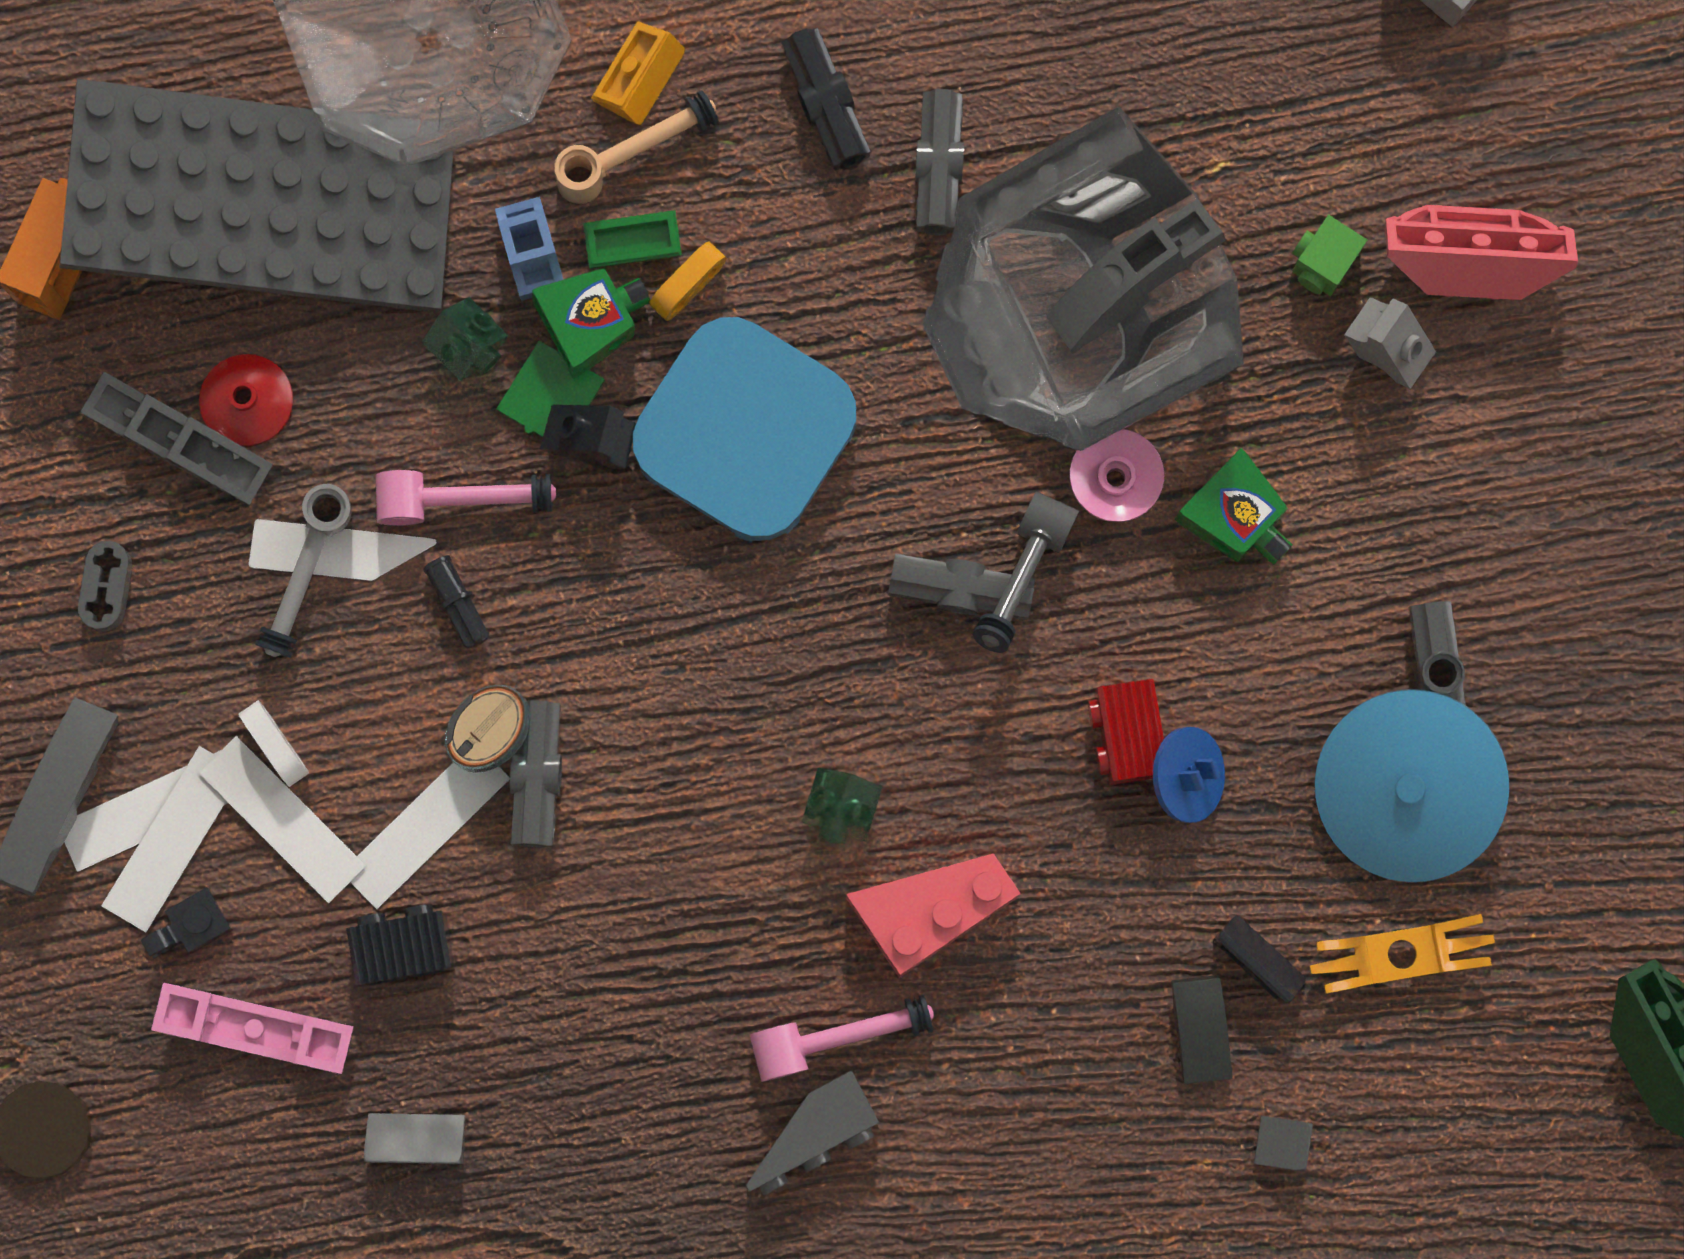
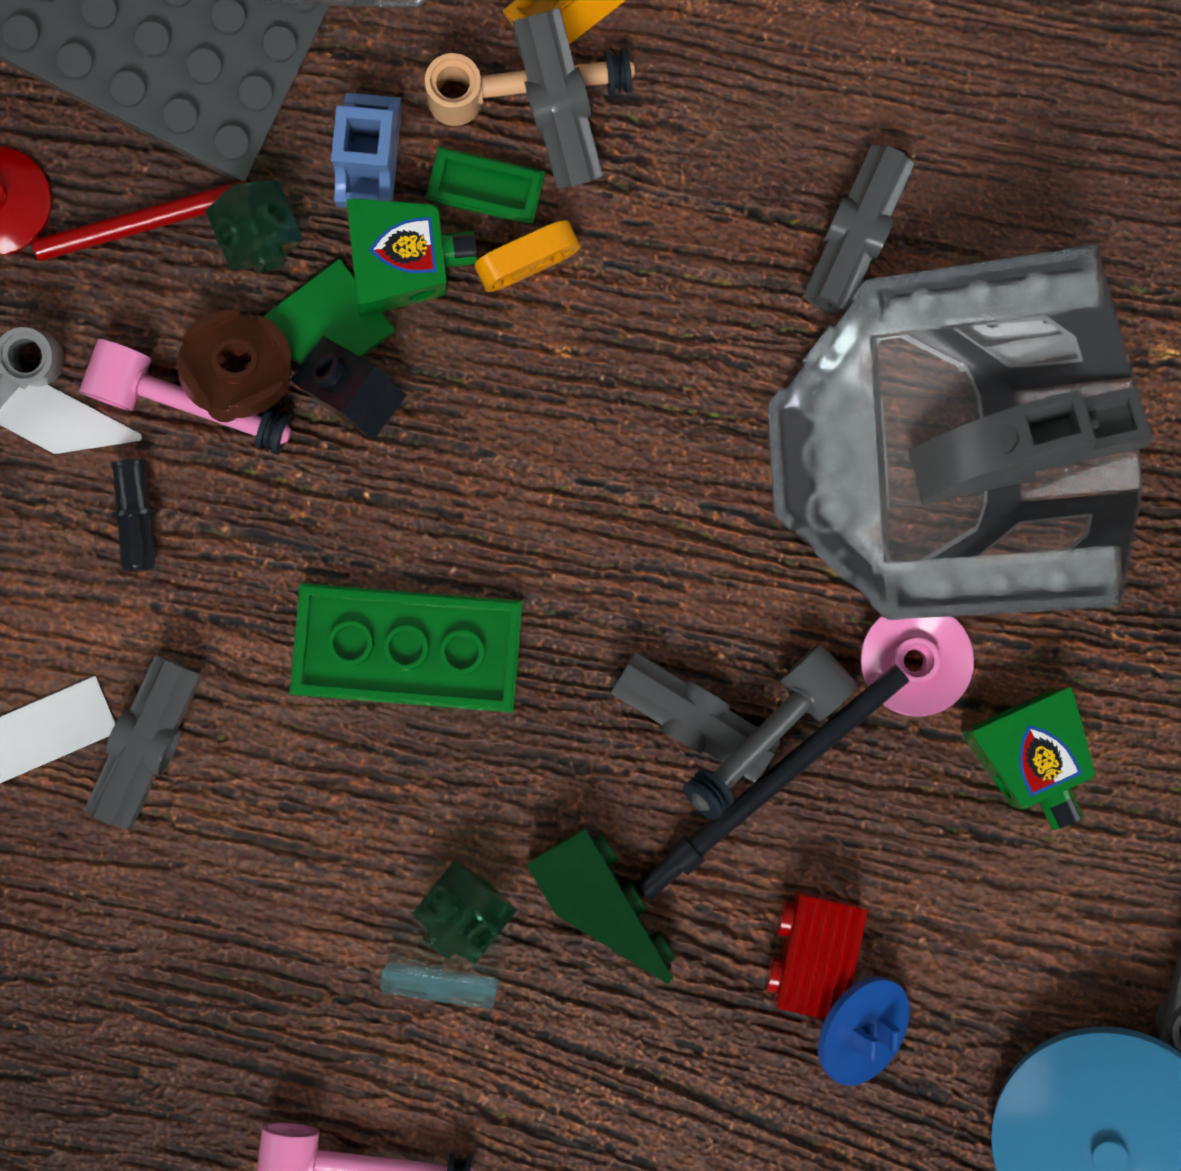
camera: 20 degrees right, 5 degrees up
(364, 374) = (127, 224): none -> red bar
(487, 728) = (108, 671): piece -> none
(497, 475) = (228, 393): none -> copper plate
(665, 150) = (557, 98): none -> dark grey piece
(713, 623) = (406, 647): none -> green tile
(744, 428) = (524, 445): dark azure tile -> none
(825, 99) = (760, 110): black piece -> none
(845, 871) = (439, 985): none -> clear light blue tile
(931, 909) = (518, 1070): coral wedge -> none
(935, 756) = (587, 894): none -> dark green slope
(999, 695) = (687, 853): none -> black bar

